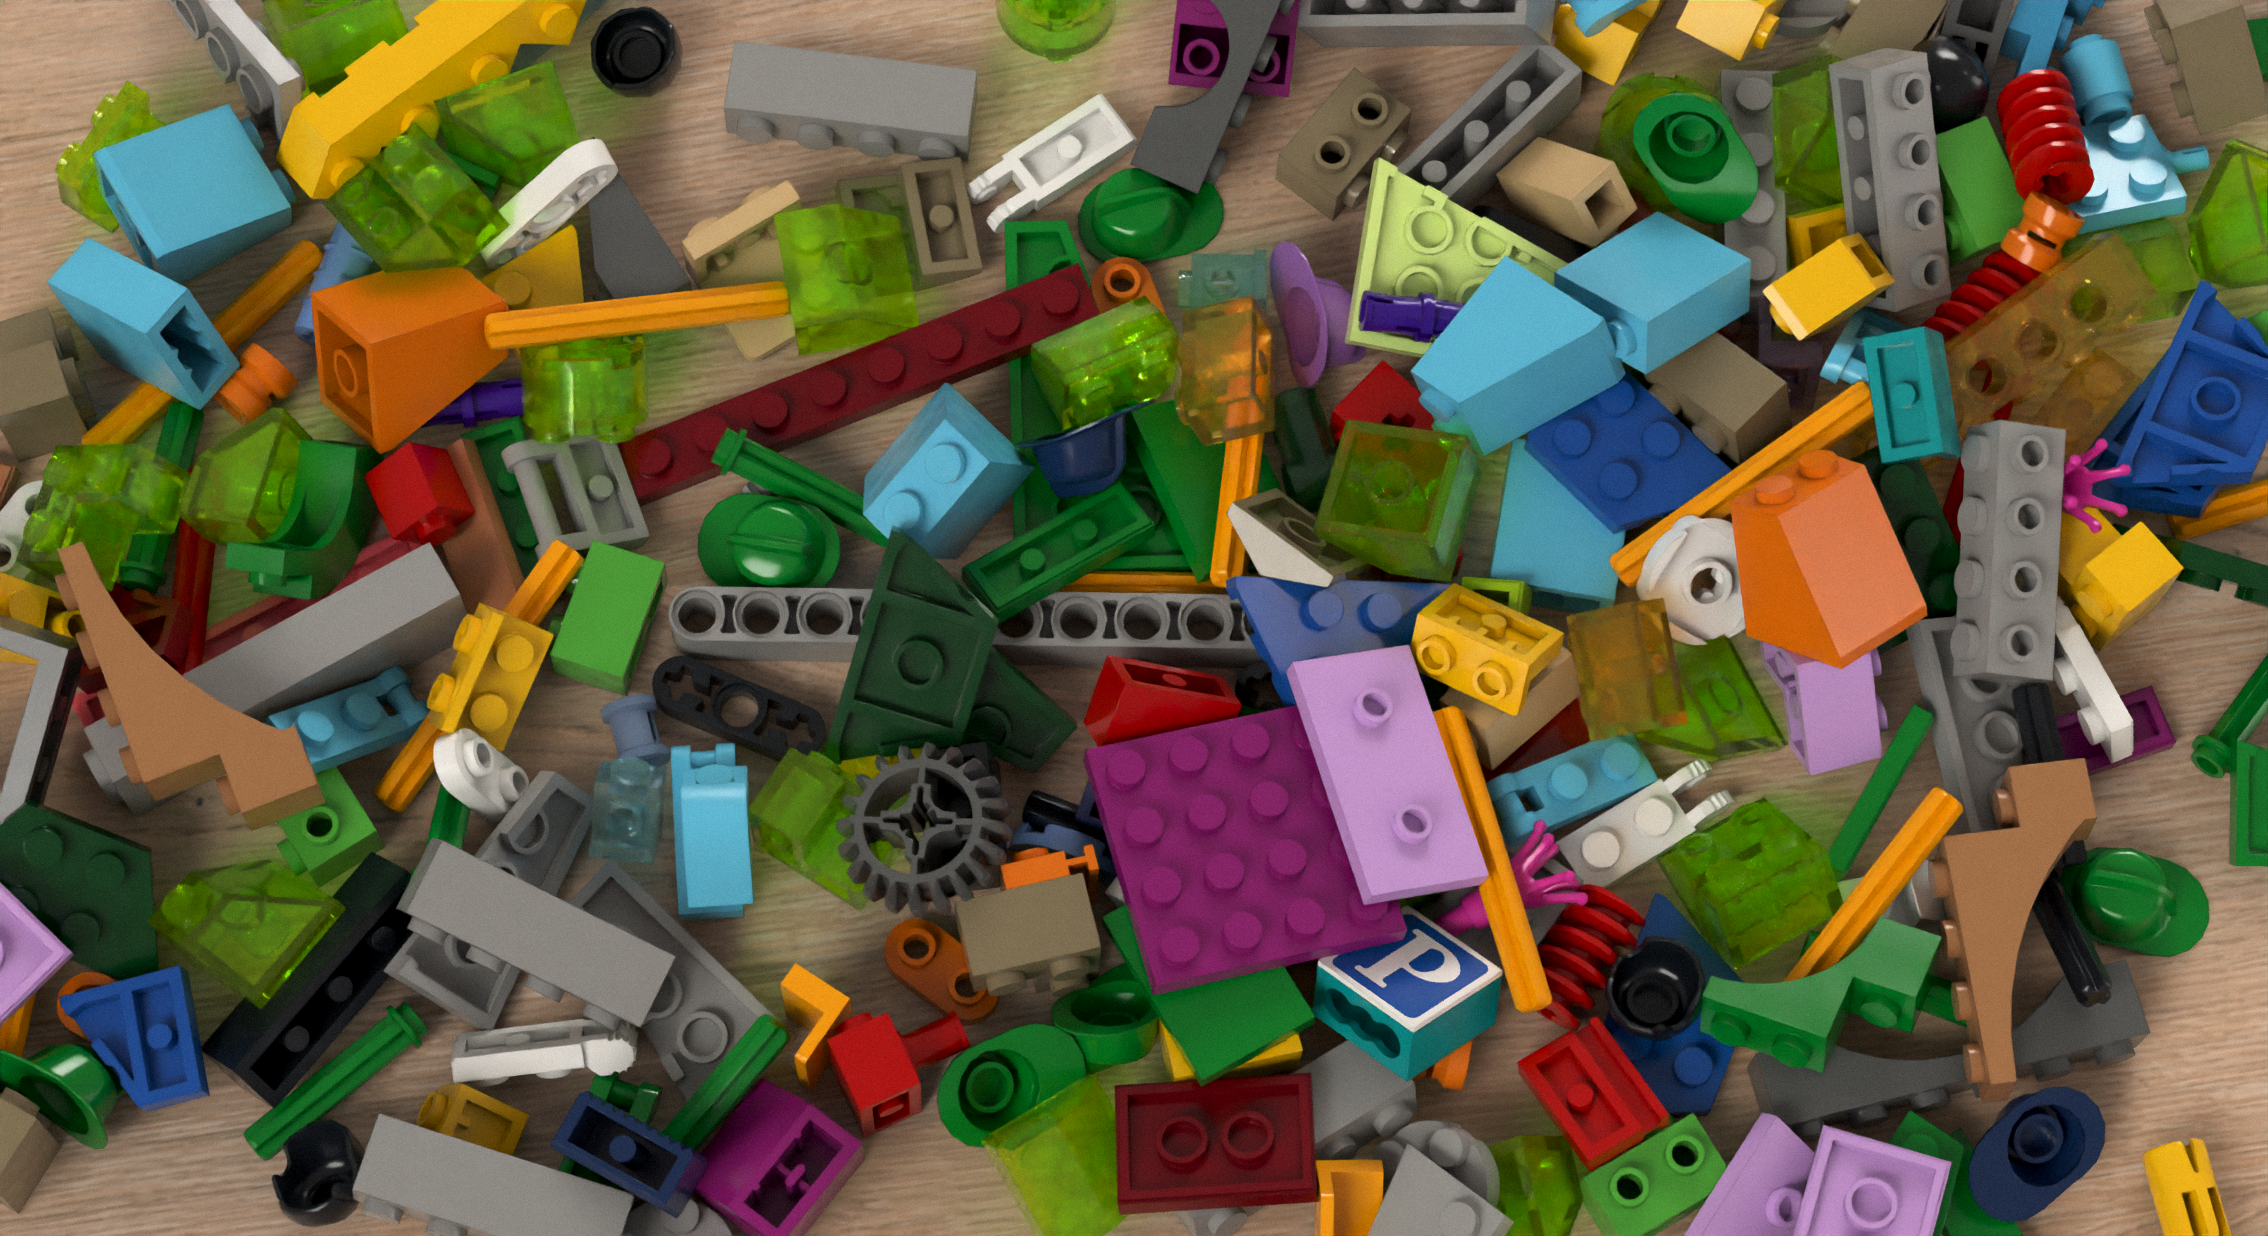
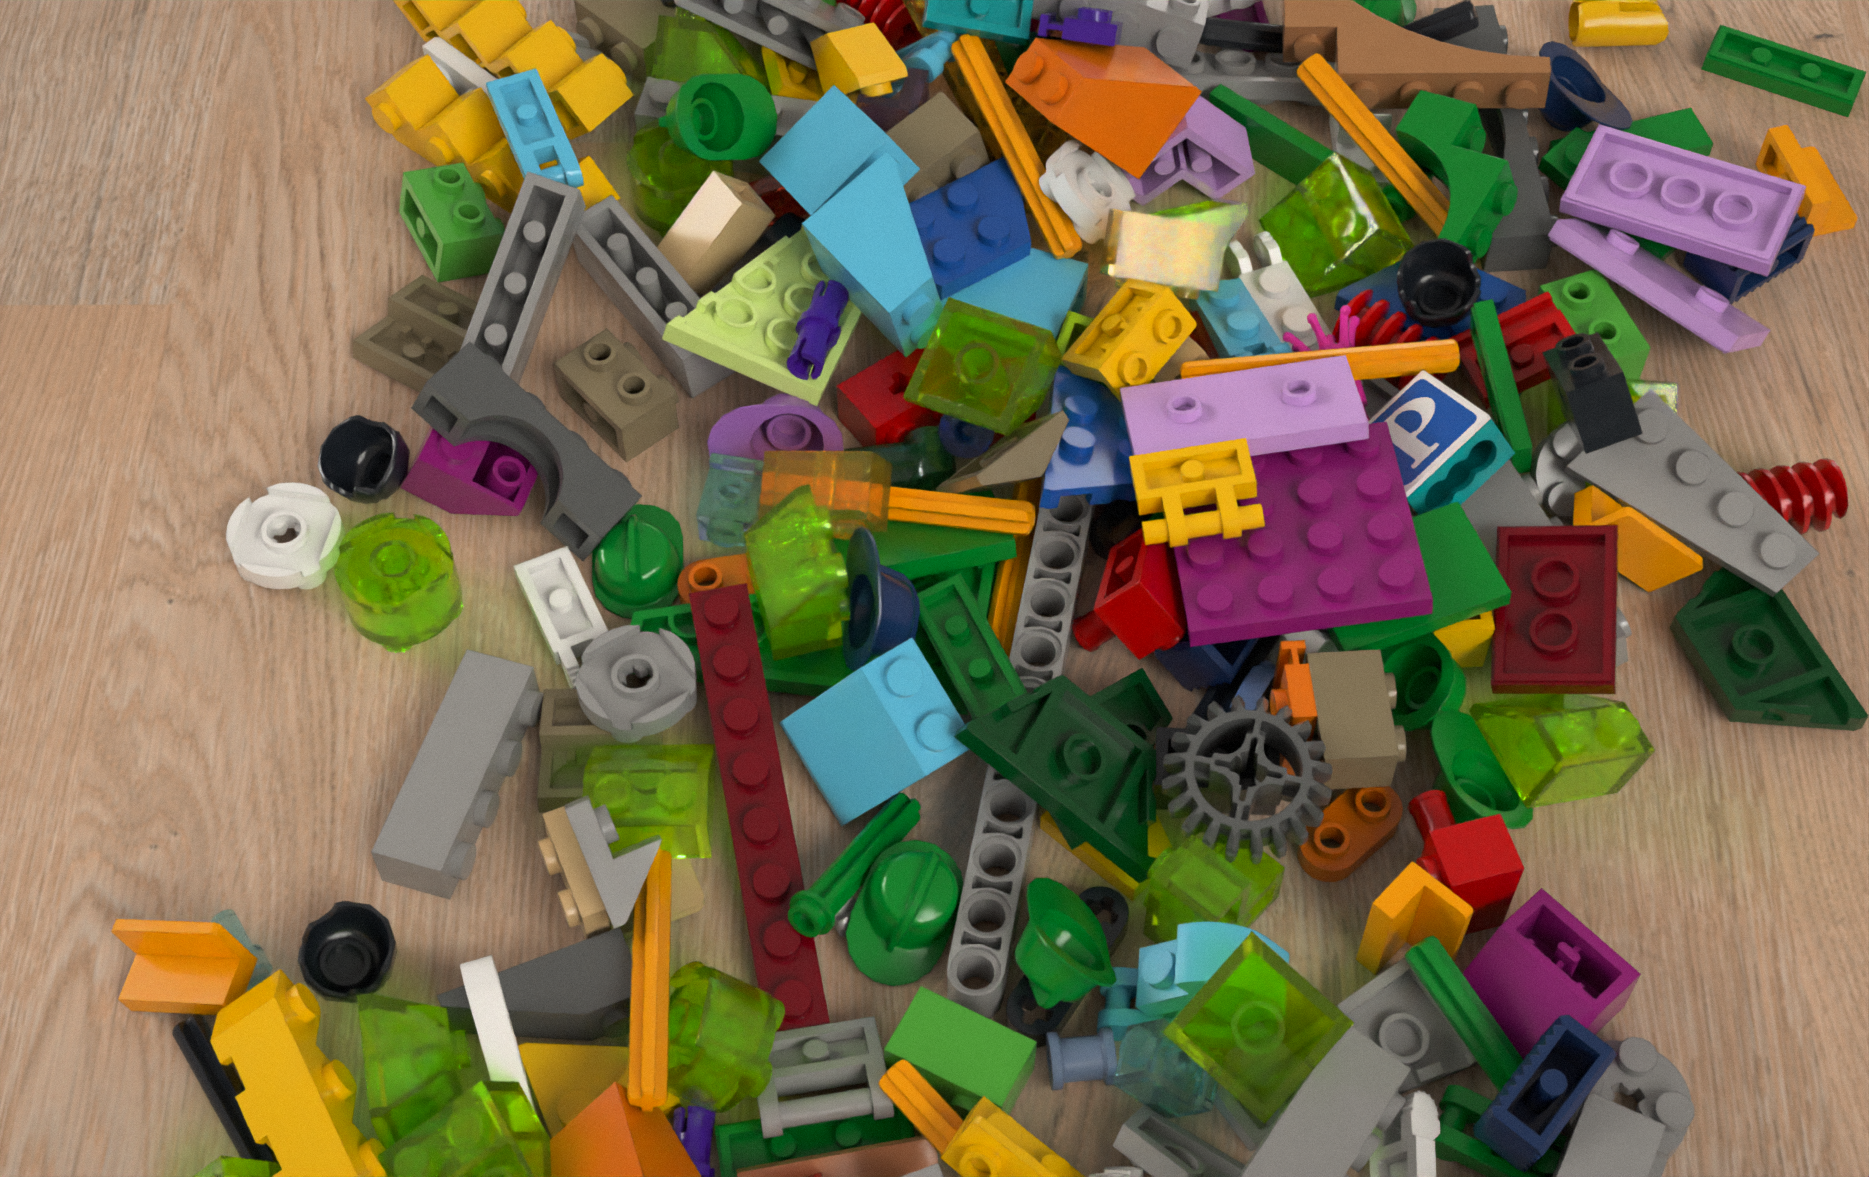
camera: 75 degrees left, 15 degrees down
(631, 859) = (1258, 1027): none -> clear neon green slope
(729, 246) = (616, 874): none -> light grey slope
(739, 690) = (1062, 945): none -> green piece
(967, 203) = (643, 710): none -> light grey plate
(1271, 722) = (1194, 478): none -> yellow plate
(1477, 1144) = (1592, 391): none -> black brick
(1512, 1066) = (1500, 382): none -> green tile
(1916, 521) = (1089, 26): none -> dark purple plate

